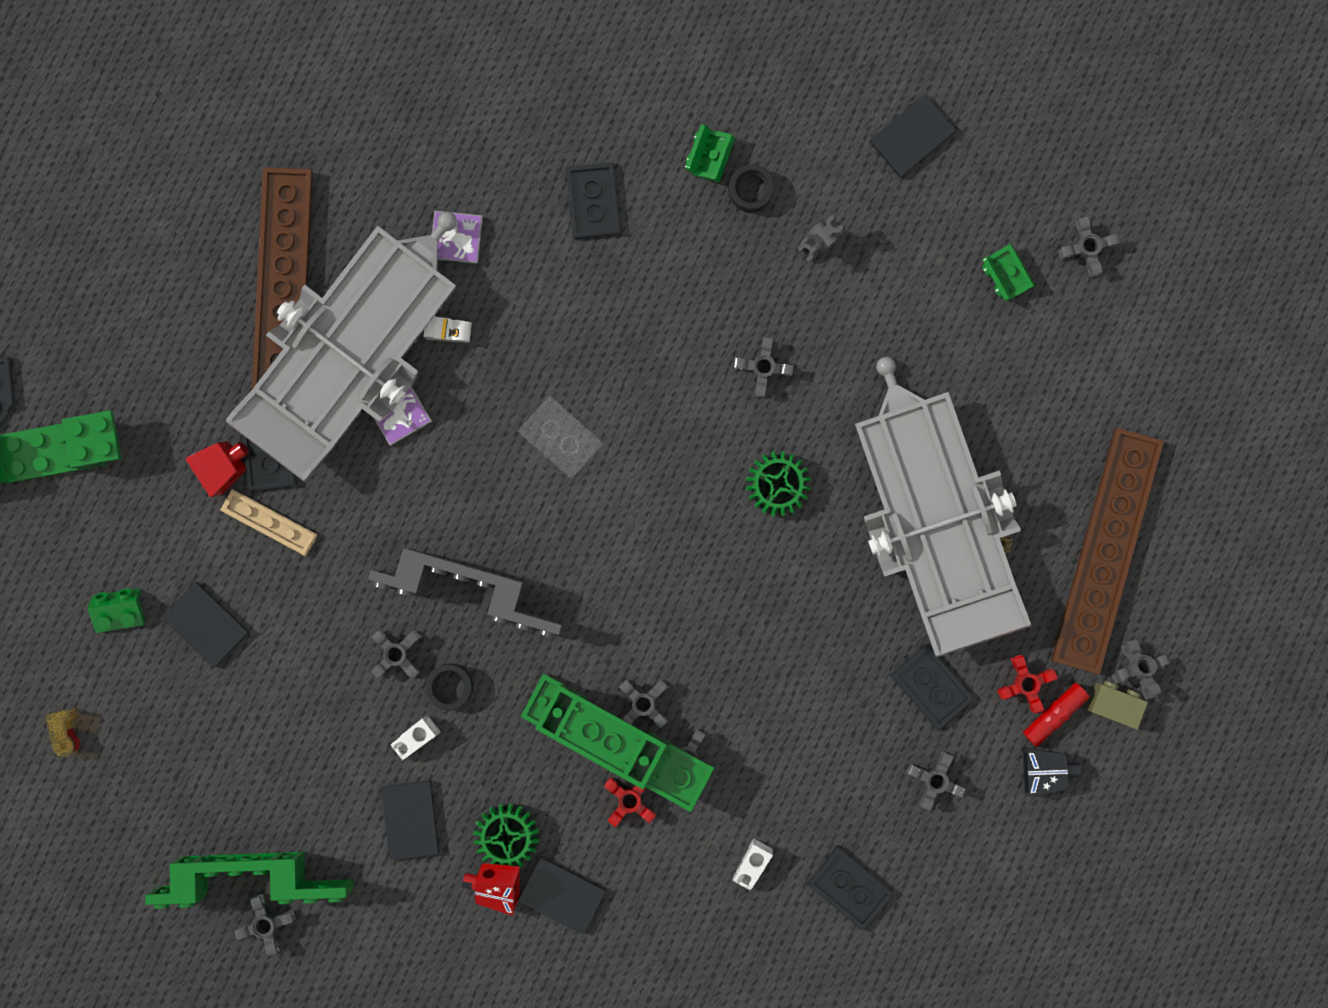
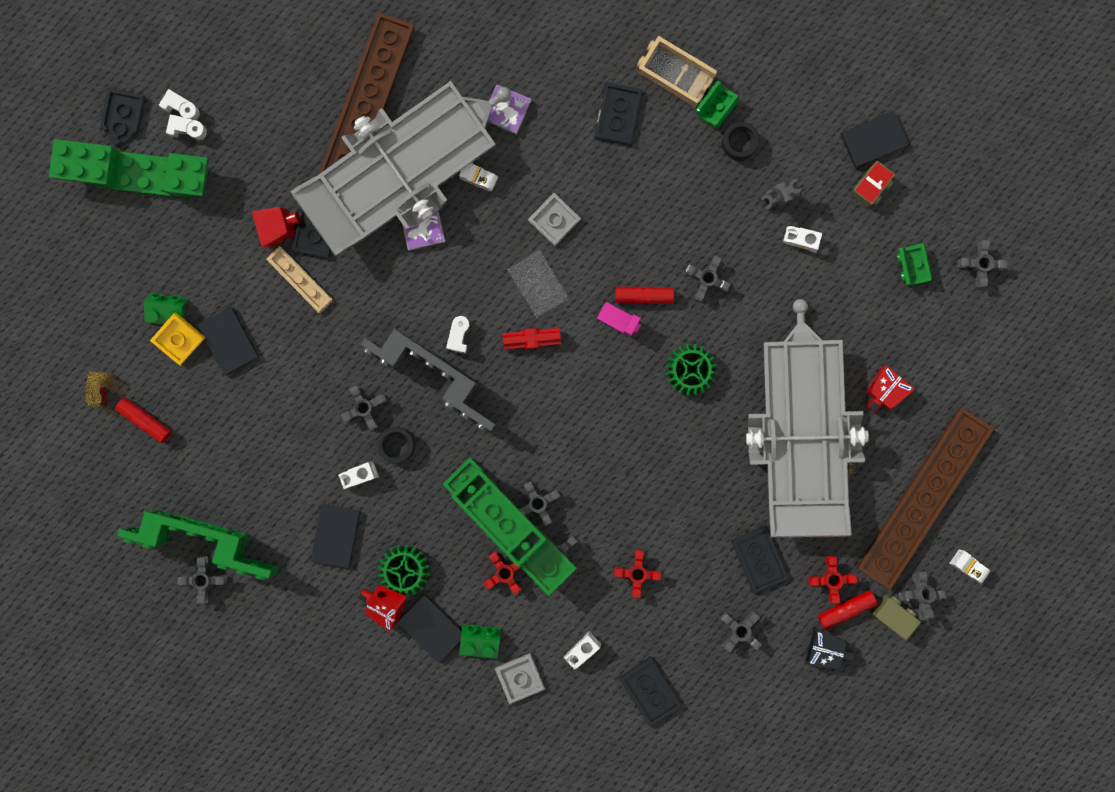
camera: 25 degrees right, 0 degrees up
(64, 357) = (184, 107): none -> white leg
(71, 379) = (185, 126): none -> white leg
(132, 753) = (143, 420): none -> red axle
(142, 641) = (177, 338): none -> yellow tile
(481, 519) = (459, 328): none -> white leg
(555, 353) = (554, 219): none -> light grey tile
(573, 506) = (531, 338): none -> red piece
(625, 892) = (480, 641): none -> green bracket
(647, 127) = (676, 71): none -> door
(672, 450) = (619, 319): none -> dark pink bracket
(687, 922) = (520, 678): none -> light grey tile
(693, 411) = (645, 295): none -> red axle
(804, 747) = (638, 561): none -> red pin
(863, 283) = (802, 238): none -> white leg
(927, 191) = (872, 184): none -> red brick
(1021, 434) = (887, 390): none -> red torso
(1186, 616) = (970, 566): none -> white leg

